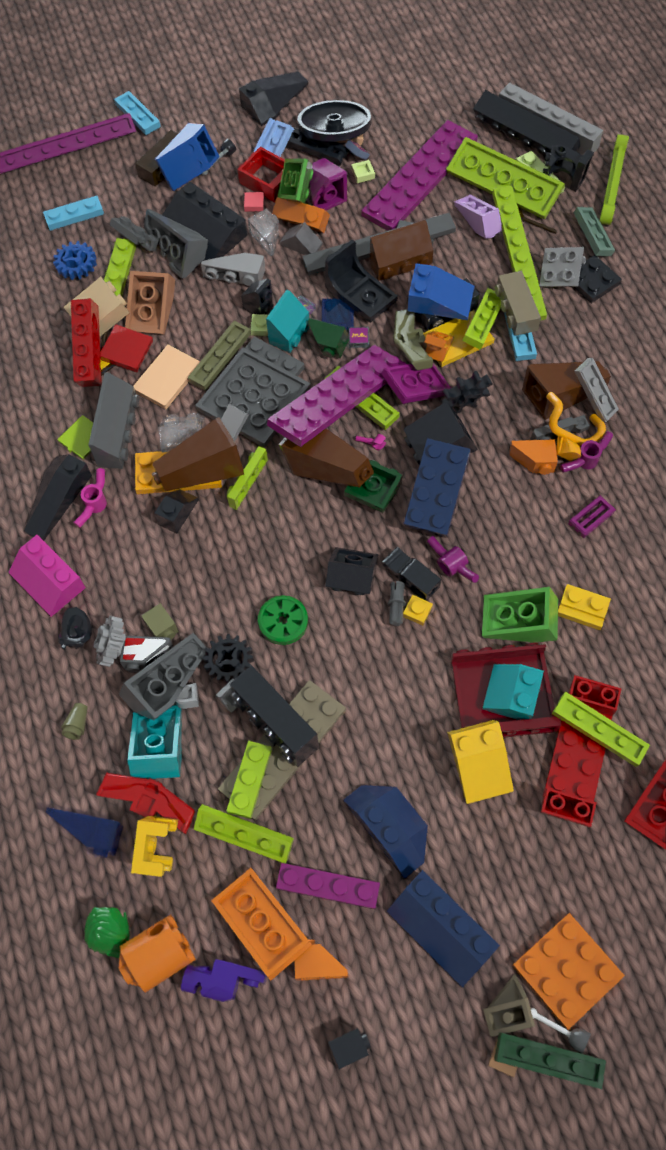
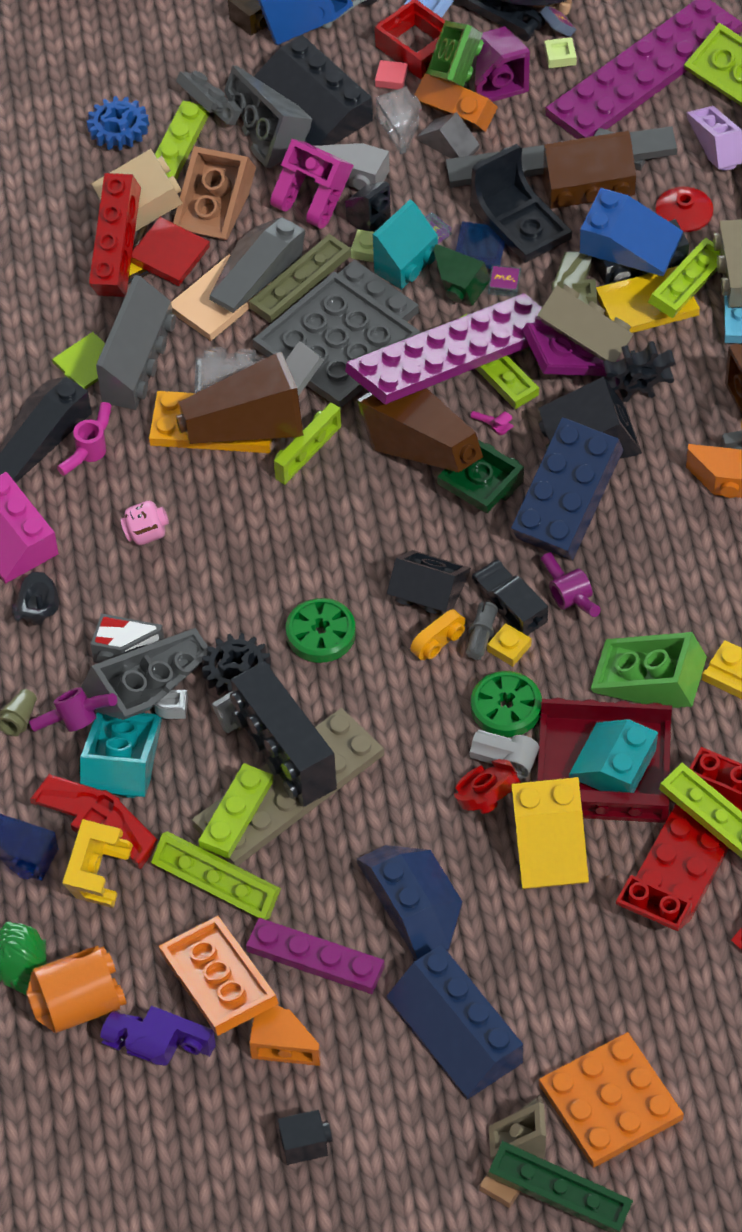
camera: 10 degrees right, 10 degrees down
(73, 213) = (126, 57): medium azure plate -> none
(109, 641) = (81, 617): light grey gear -> none
(116, 715) = (74, 710): none -> magenta piece
(143, 556) = (144, 523): none -> bright pink head
(160, 622) = (152, 606): olive brick -> none
(175, 510) = (199, 471): black slope -> none
(187, 348) = (257, 261): none -> dark grey wedge
(226, 277) = (324, 167): none -> dark pink brick
(363, 617) = (436, 635): none -> light orange plate
(425, 364) = (585, 324): none -> dark tan brick
(425, 644) = (507, 687): none -> green wheel
(437, 725) = (484, 788): none -> red plate
(438, 345) = (615, 301): orange slope -> none
(439, 698) = (519, 750): none -> light grey piece
(469, 267) = (686, 205): none -> red dish
(577, 1038) = (602, 1173): hinge -> none

